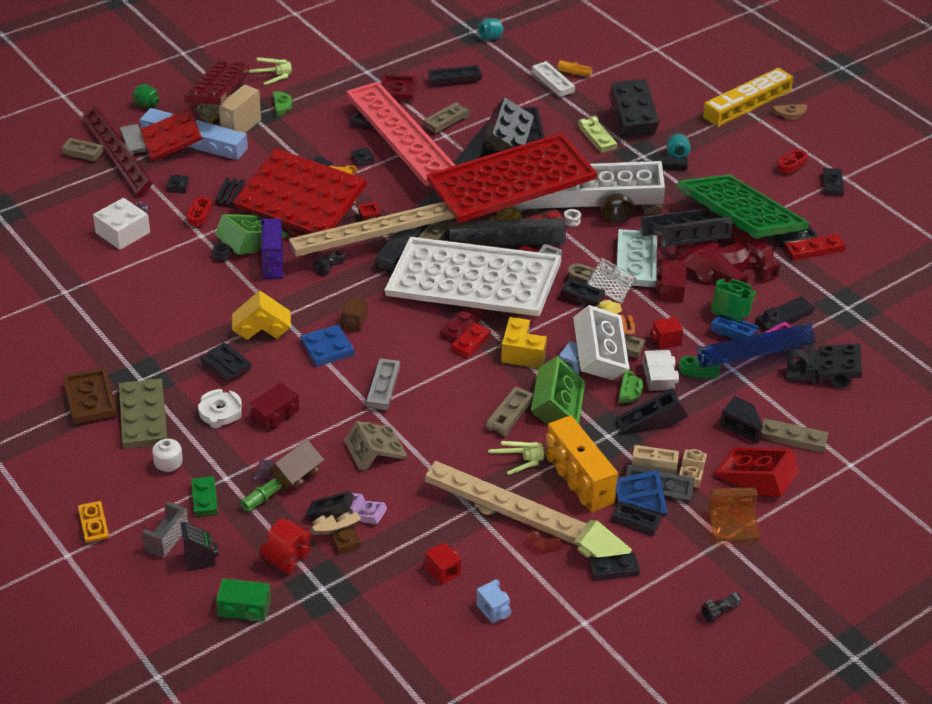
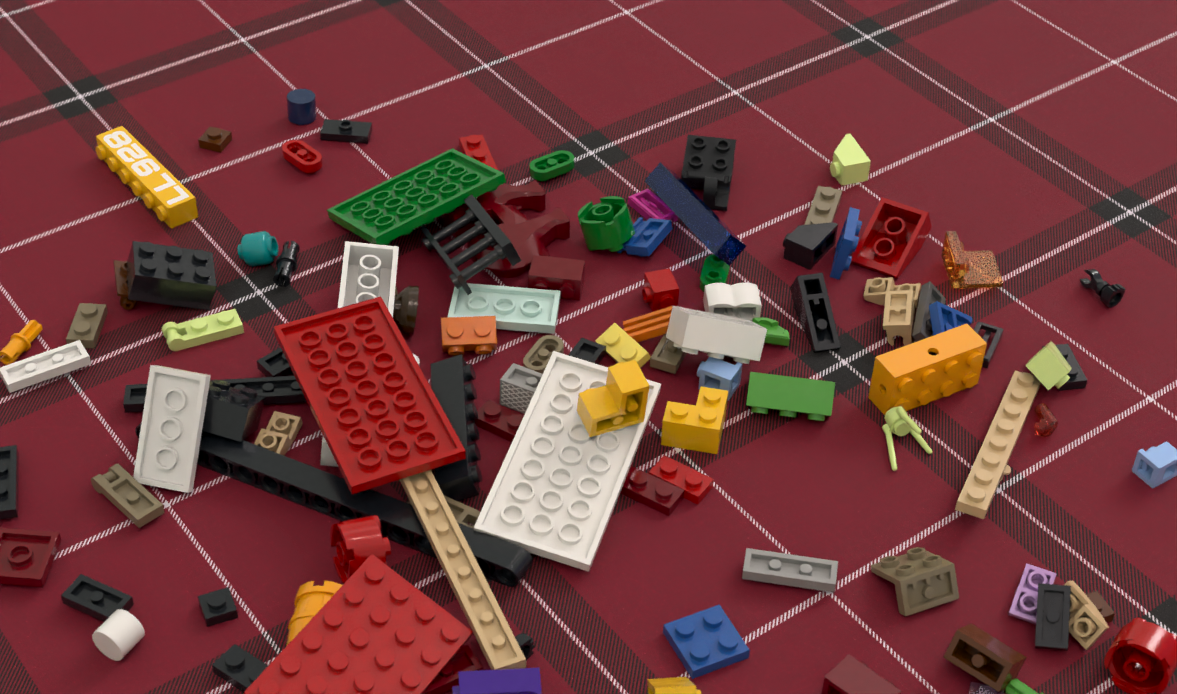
camera: 90 degrees left, 0 degrees up
(337, 121) = (118, 634): none -> white piece
(354, 314) = (644, 603): reddish brown brick -> none
(394, 194) = (356, 542): none -> red brick
(399, 130) = (183, 539): coral plate -> none
(443, 563) = (1112, 507): red brick -> none
(482, 111) = (171, 428): none -> white plate
(507, 278) = (617, 403): none -> yellow brick
(509, 411) = (825, 441): dark tan plate -> none
(594, 91) = (87, 324): none -> dark tan plate
(601, 240) = (469, 334): none -> orange bracket
(611, 279) = (571, 324): clear panel -> none
(734, 429) = (846, 243): none -> blue plate
(788, 312) = (600, 186): black hinge -> none
(790, 111) = (183, 147): medium nougat plate -> none
(805, 124) = (215, 139): none -> reddish brown plate
(815, 281) = (551, 165): none -> green plate
(850, 155) = (301, 106): none -> dark blue piece
(868, 453) = (850, 162): none -> yellowish green slope

